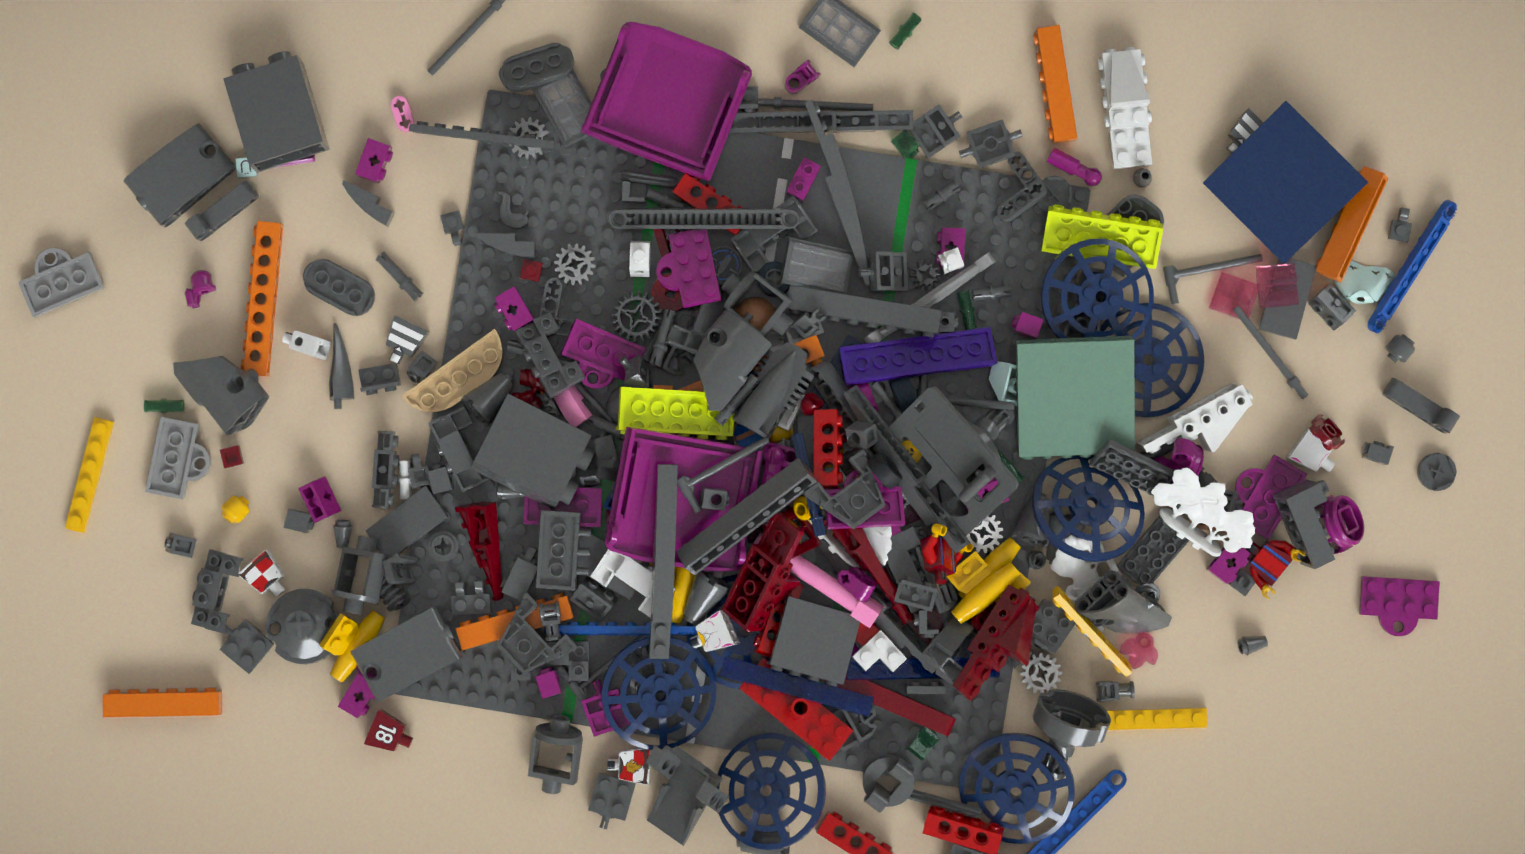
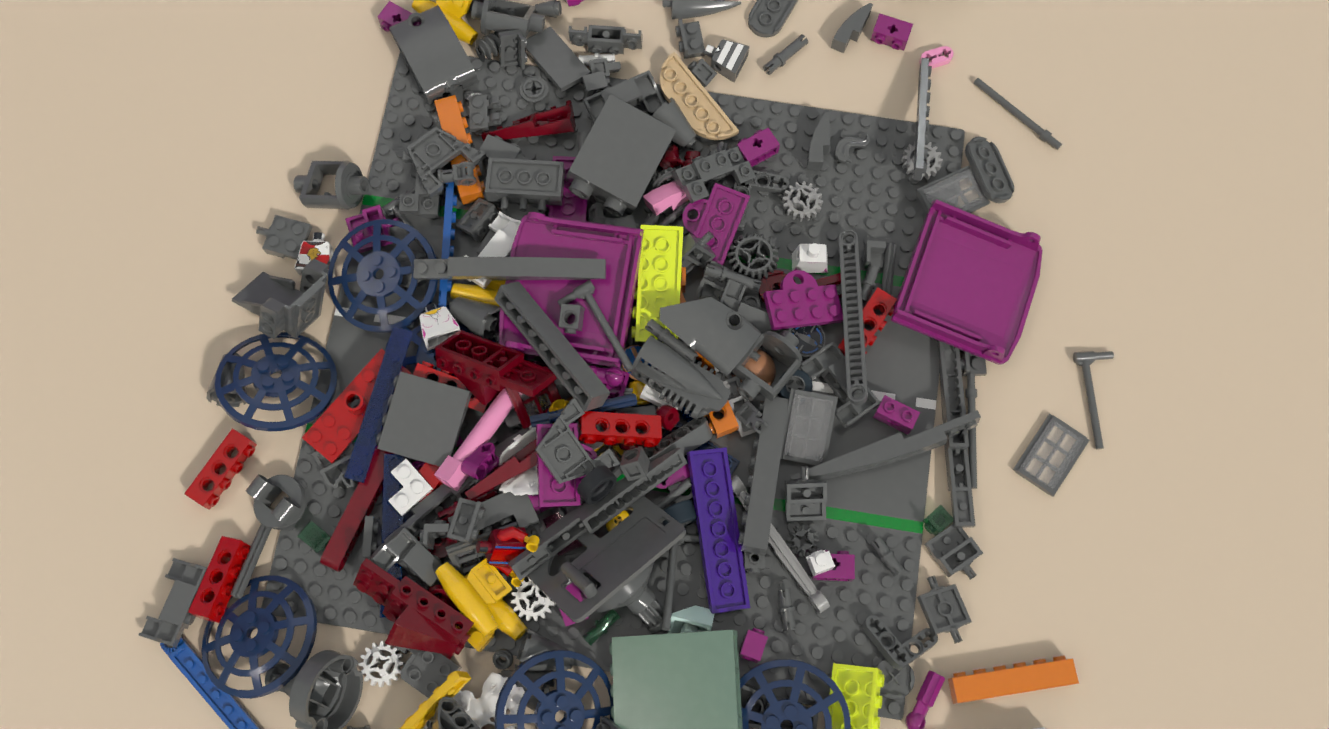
camera: 90 degrees right, 15 degrees down
(387, 732) = (364, 44): dark red torso -> none
(452, 225) = (835, 99): dark grey plate -> none
(531, 270) = (794, 165): dark red plate -> none
(549, 682) = (398, 175): magenta brick -> none
(804, 75) = (1000, 415): magenta piece -> none
(905, 31) = (1055, 520): clear green pin -> none
(967, 310) = (767, 583): clear green pin -> none

